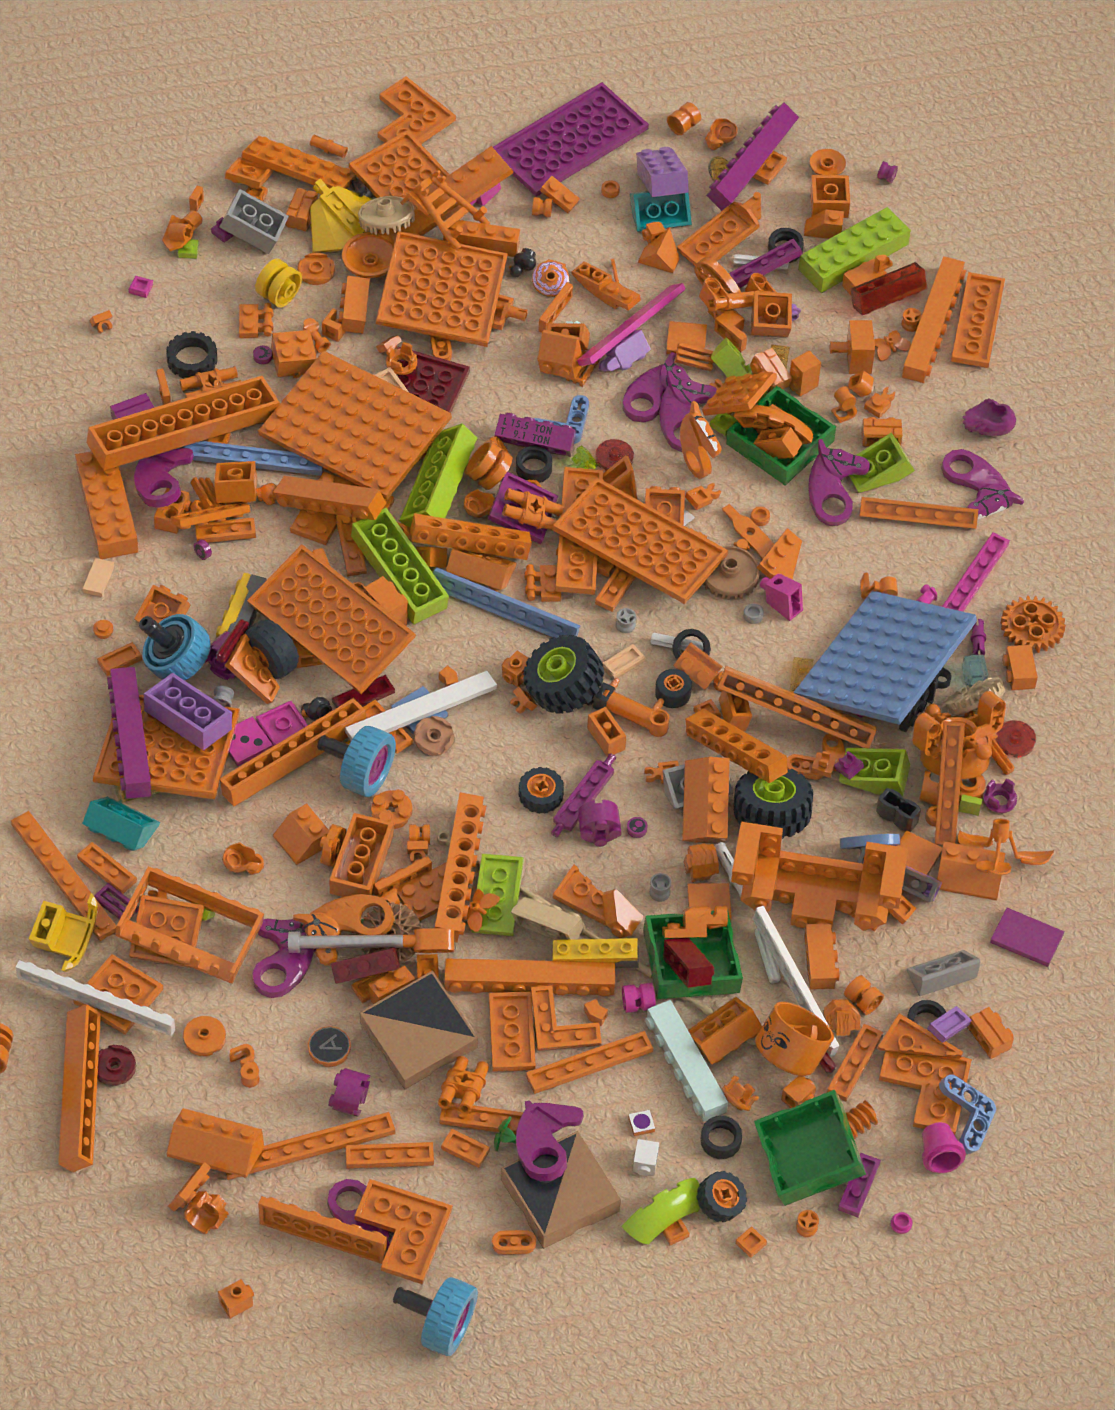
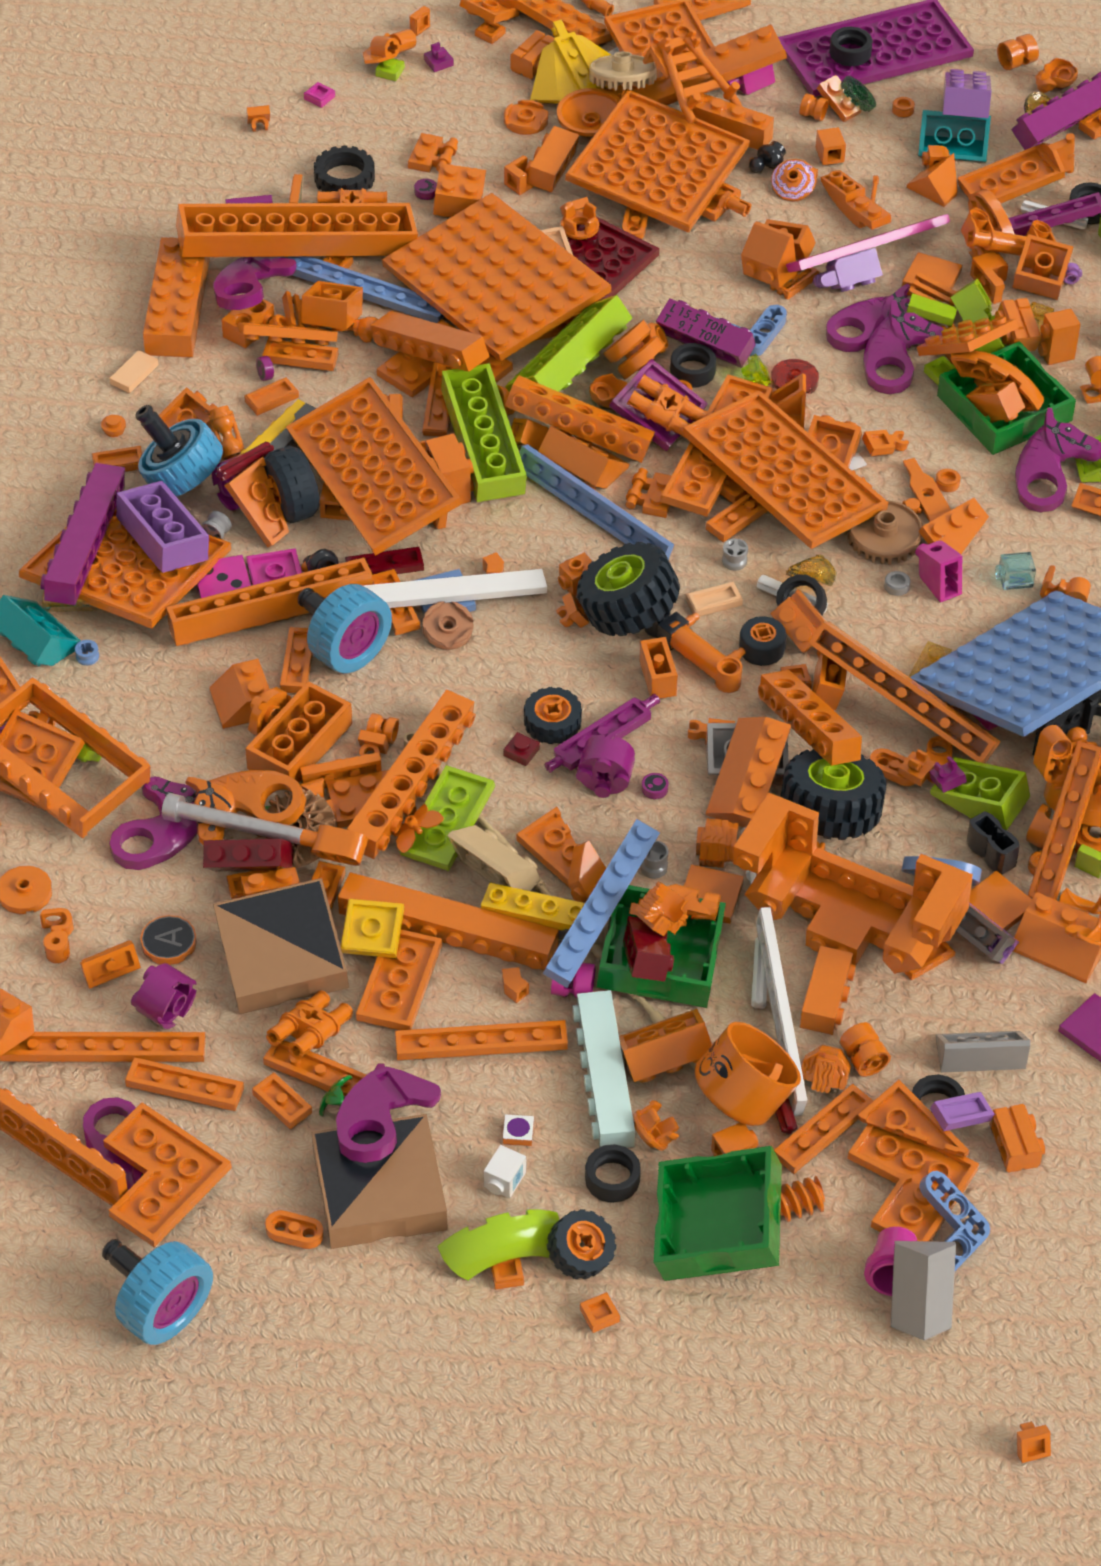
camera: 20 degrees right, 5 degrees down
(172, 831) = (90, 658): none -> medium blue bush
(195, 608) = (222, 422): none -> orange piece
(216, 572) = (271, 396): none -> orange tile
(242, 858) = (157, 703): orange hair -> none
(254, 221) = (471, 51): light grey brick -> none
(278, 282) = (472, 117): yellow wheel -> none
(295, 1078) = (110, 964): none -> orange plate
(322, 343) = (492, 179): orange leg -> none
(332, 794) = (296, 661): none -> orange plate
(359, 187) = (608, 44): black axle -> none
(392, 799) = (368, 682): orange plate -> none
(480, 997) = (372, 928): none -> yellow tile
(527, 823) = (521, 749): none -> dark red plate
(551, 1036) = (447, 998): orange plate -> none
(553, 156) = (847, 56): none -> black tyre
(556, 306) = (791, 206): orange tile -> none
(569, 241) = (830, 146): none -> orange brick
(574, 187) = (858, 93): none -> clear green wheel
(643, 935) = (601, 903): none -> medium blue plate
(690, 930) = (662, 909): none -> orange hair
(691, 619) = (815, 567): none -> clear yellow hat
(696, 441) = (892, 373): orange animal -> none
(699, 371) = (932, 310): none -> lime tile
(808, 1218) = (679, 1302): orange wheel -> none
(838, 582) = (1016, 571): none -> clear light blue brick
(858, 1189) = (770, 1282): magenta plate -> none
(901, 1223) = (809, 1343): dark pink plate -> none
(904, 912) = (954, 961): orange plate -> none
(968, 1162) = (923, 1287): none -> light grey slope
(1076, 1250) = (1033, 1442): none -> orange tile

